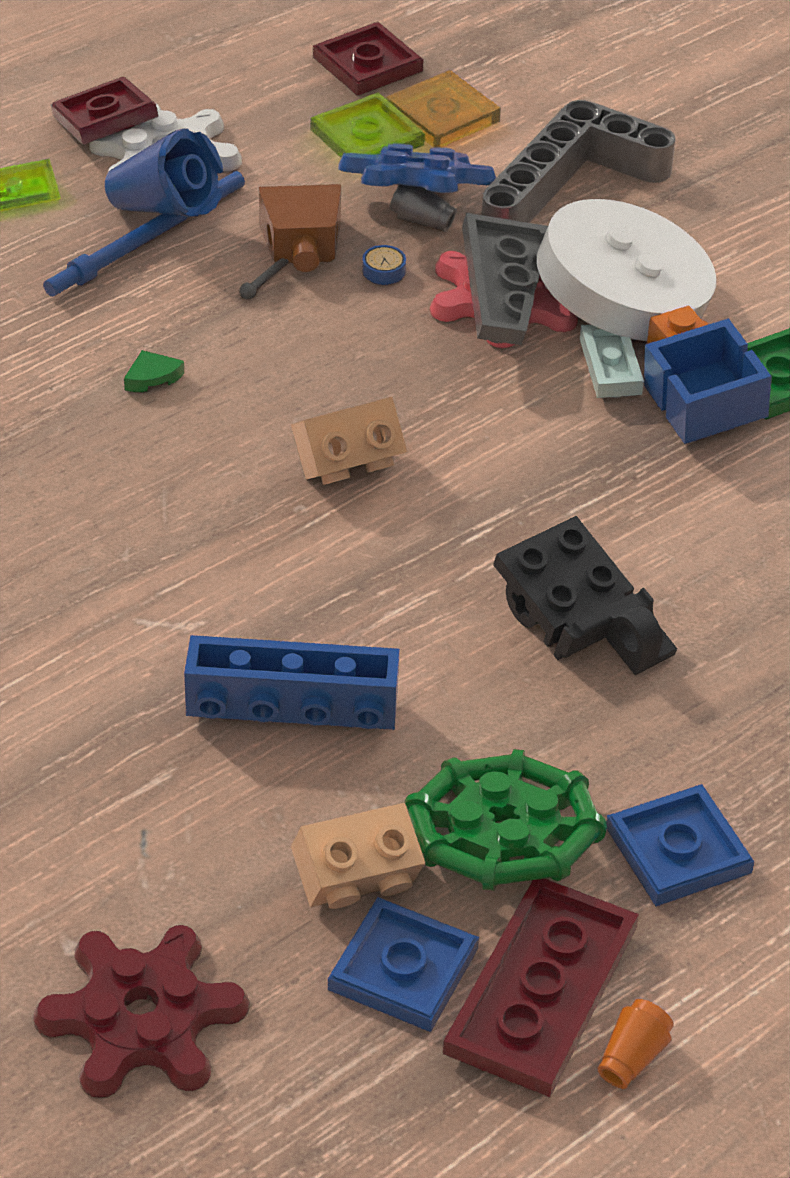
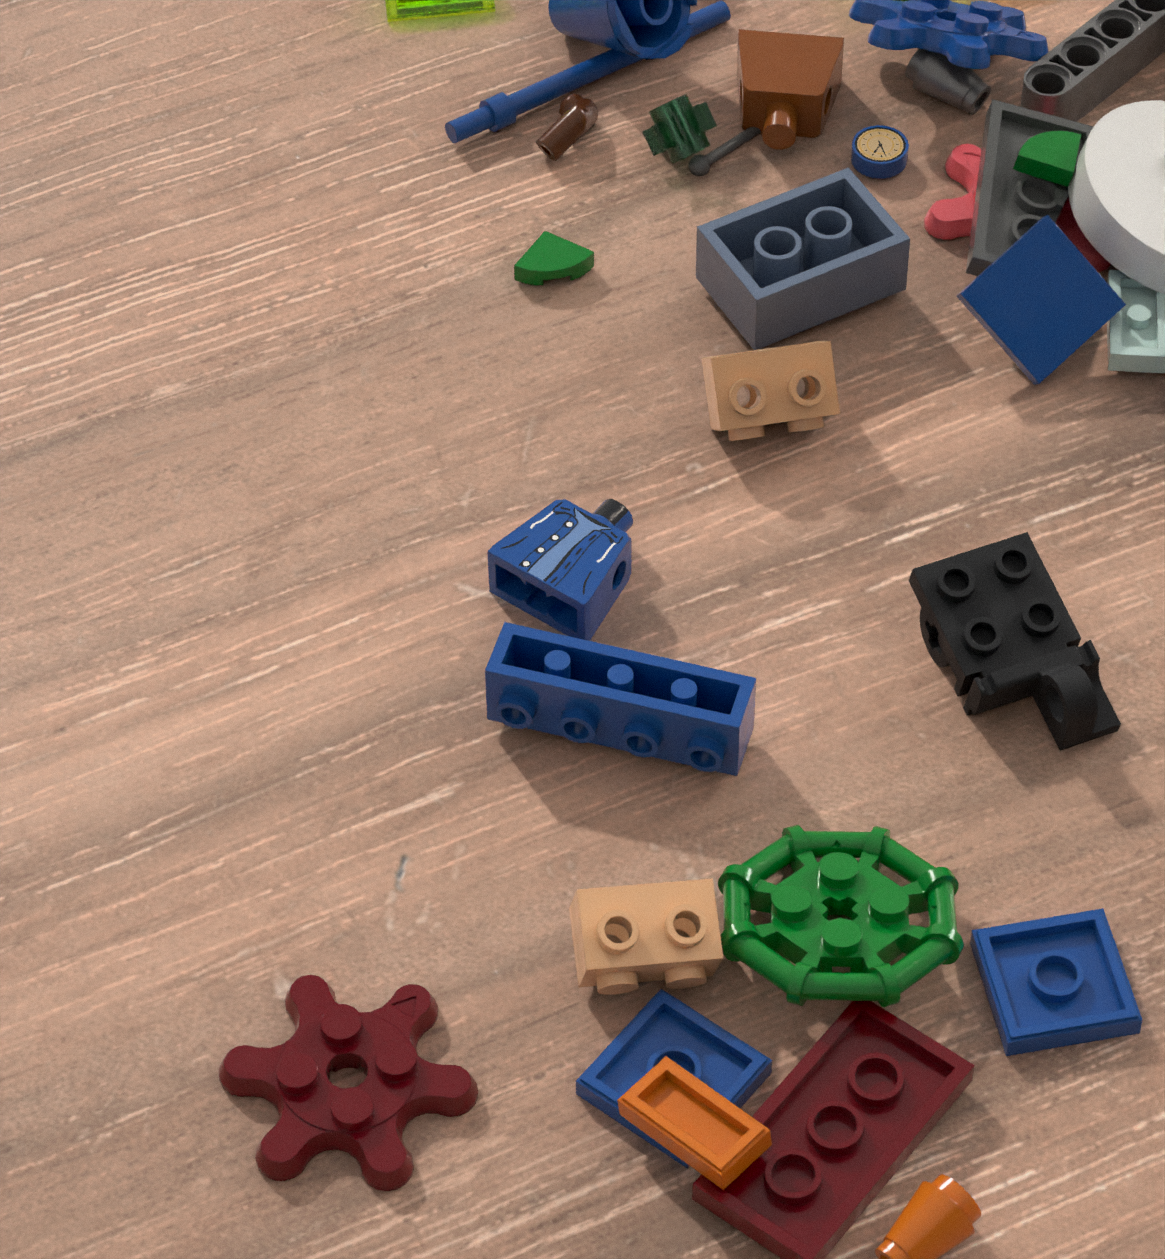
camera: 15 degrees right, 5 degrees up
(144, 268) = (576, 119): none -> reddish brown arm
(219, 590) = (565, 565): none -> blue torso
(229, 264) = (679, 128): none -> clear green gear
(348, 344) = (802, 258): none -> sand blue brick
(433, 992) = (694, 1122): none -> orange tile
(520, 248) = (1049, 156): none -> green tile
(539, 350) = (1041, 300): none -> blue tile

